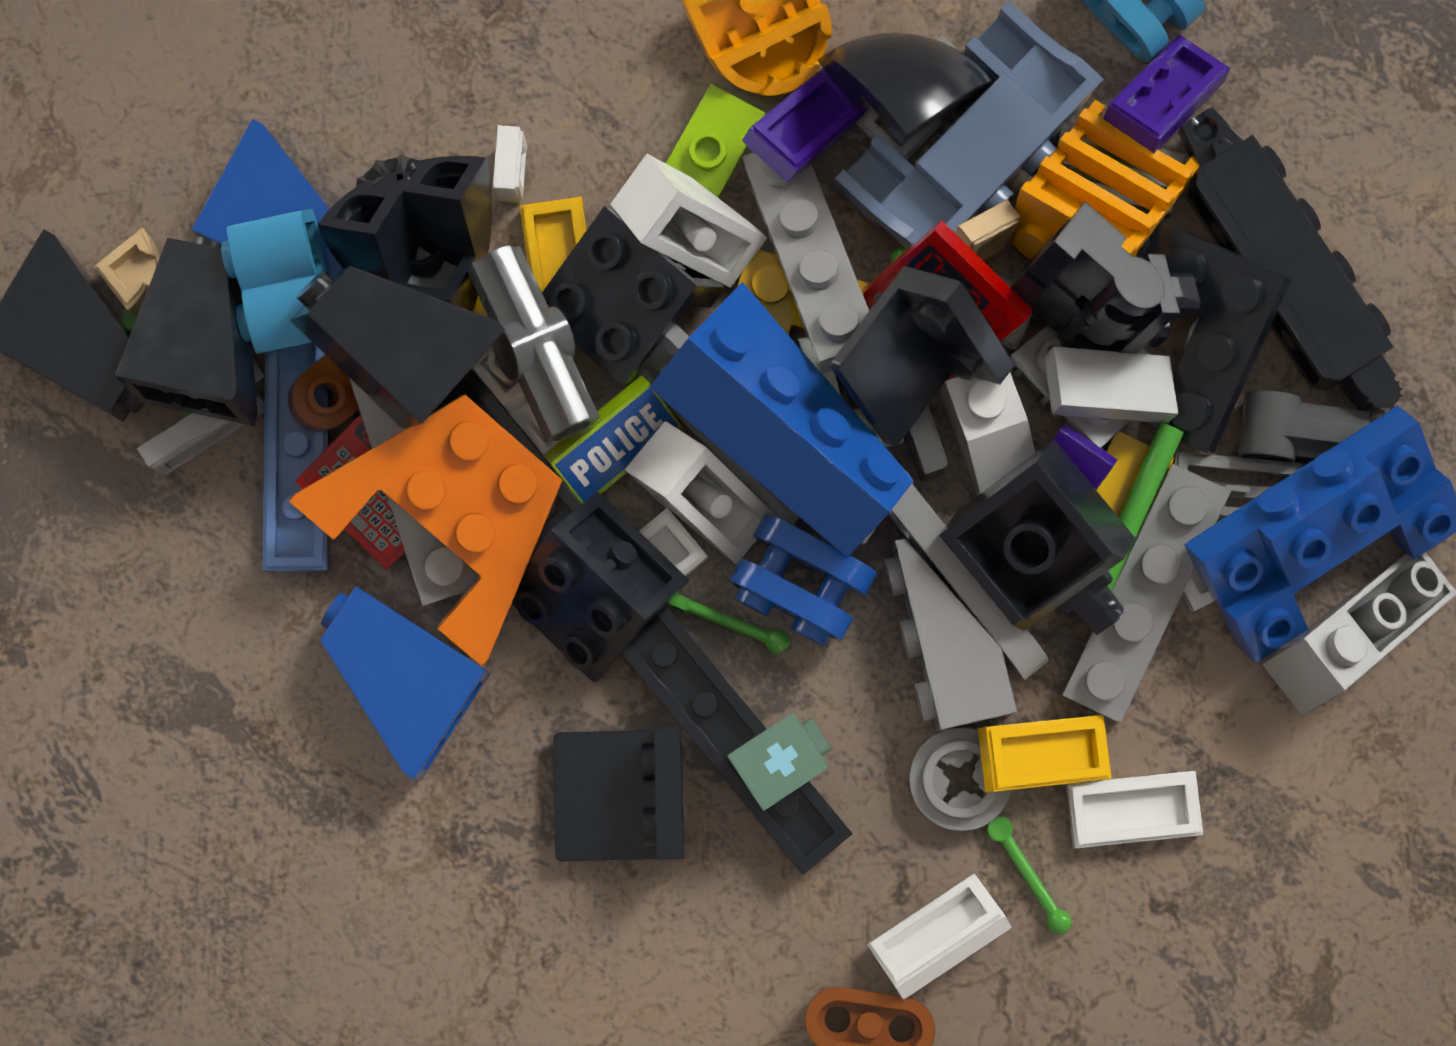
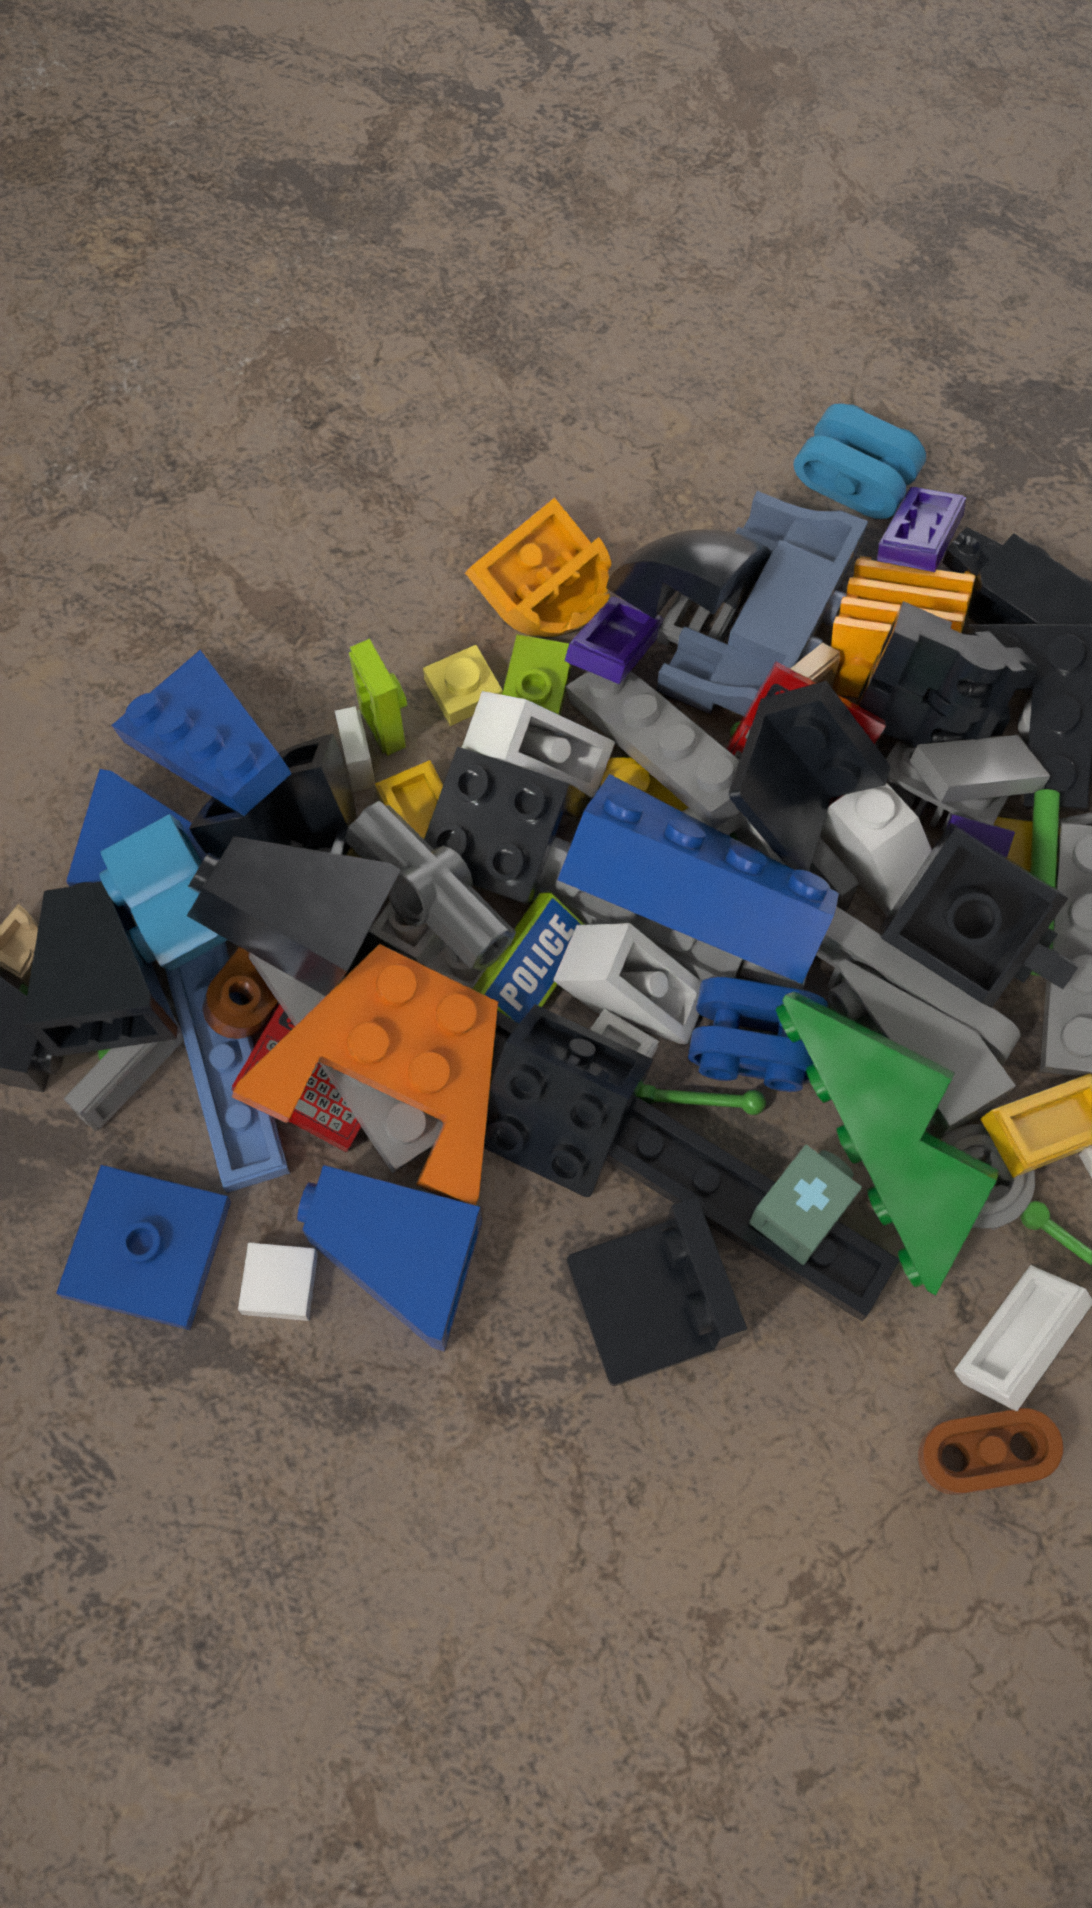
camera: 20 degrees left, 15 degrees down
(178, 602) = (144, 1247): none -> blue plate
(289, 672) = (278, 1281): none -> white tile
(363, 113) = (204, 736): none -> blue wing
(546, 123) = (378, 697): none -> lime plate
(641, 120) = (458, 683): none -> light yellow plate
(882, 693) = (886, 1106): none -> green slope

